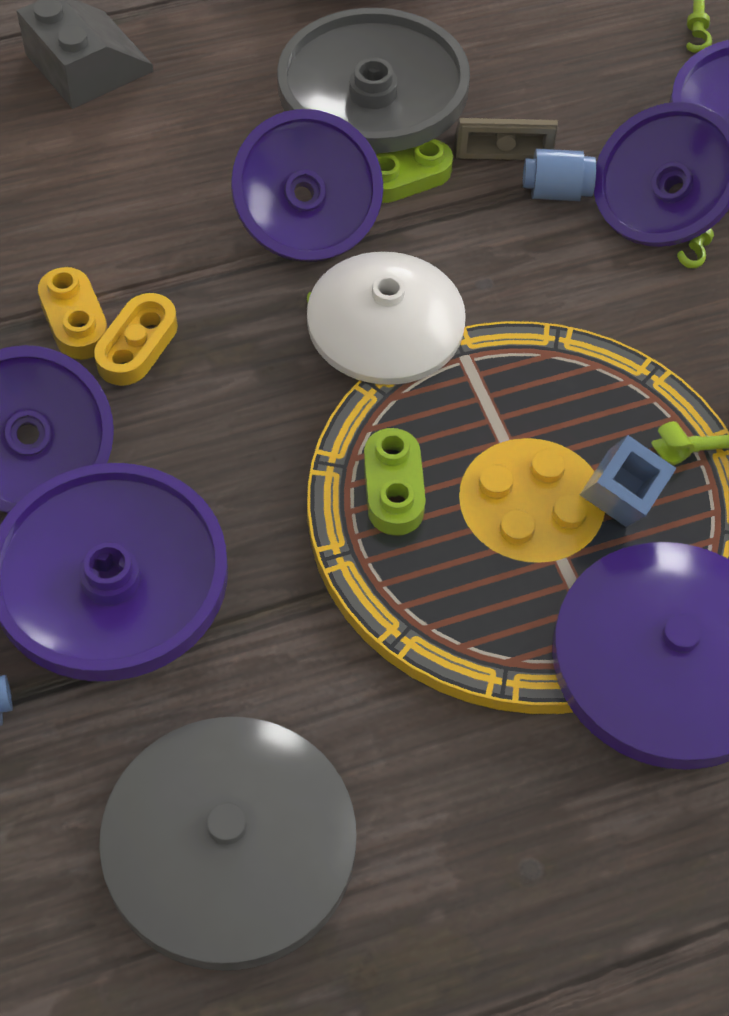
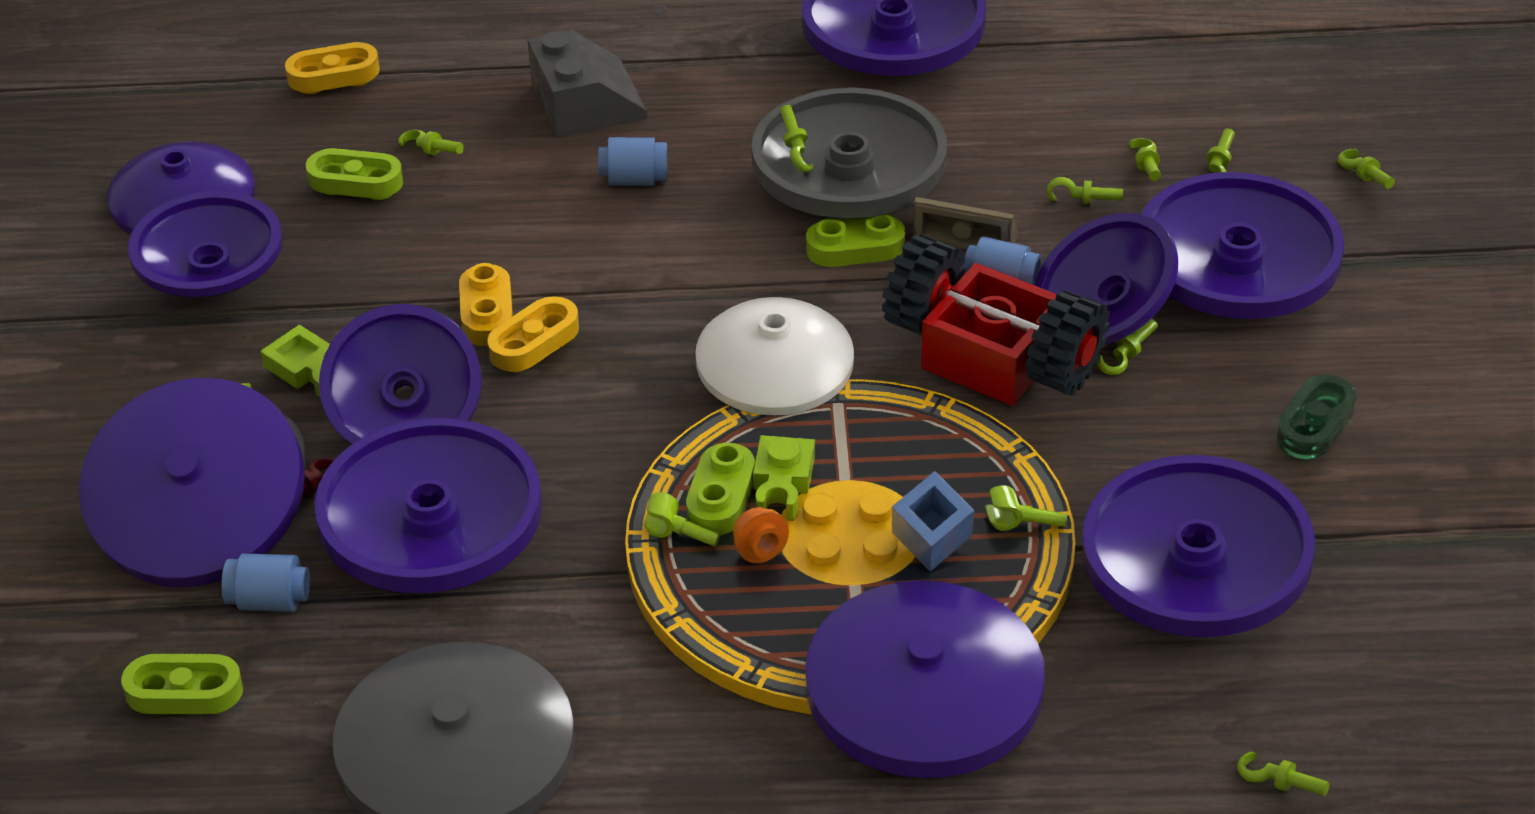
camera: 20 degrees right, 15 degrees down
(164, 124) = (633, 161): none -> medium blue brick
(314, 153) = (742, 201): dark purple dish -> none
(319, 74) = (795, 138): none -> lime hand
(351, 531) = (663, 520): none -> lime hand
(448, 448) = (783, 471): none -> lime plate
(458, 529) = (755, 524): none -> orange plate
(588, 244) = (992, 326): none -> brick
(597, 79) = (1086, 192): none -> lime hand
(636, 33) = (1146, 157): none -> lime hand

